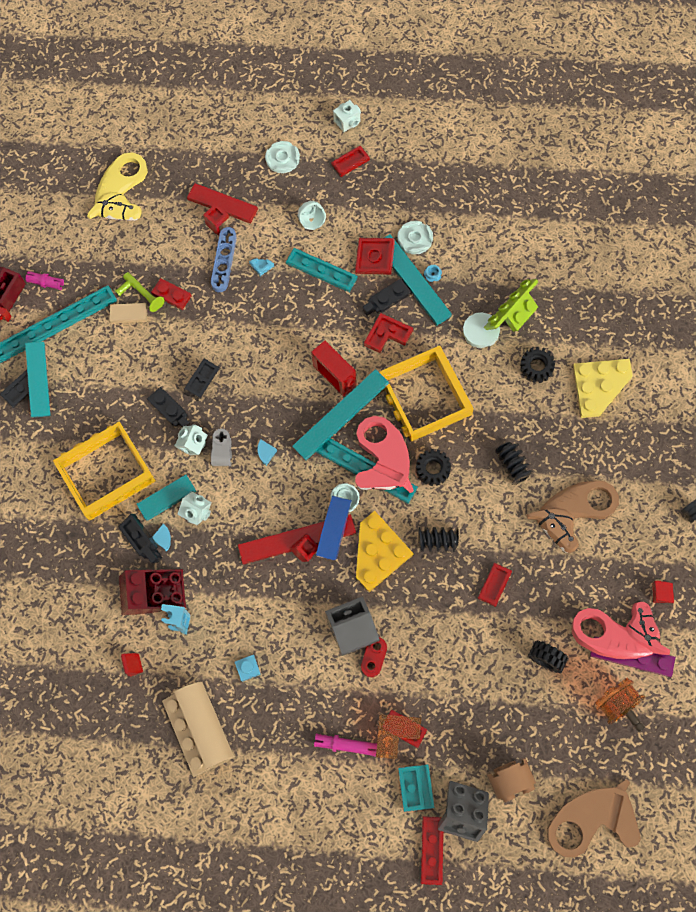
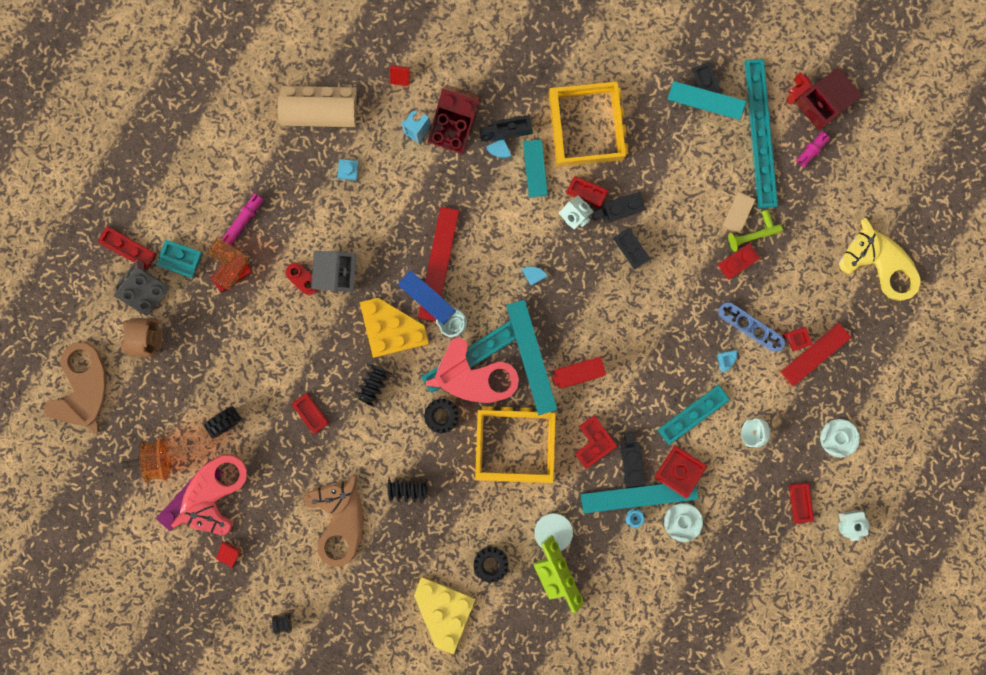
camera: 110 degrees right, 15 degrees up
(166, 441) = (587, 192): none -> red plate
(194, 508) = (509, 187): light aqua brick -> none
(221, 451) = (552, 234): light grey piece -> none
(304, 548) = (424, 266): red slope -> none

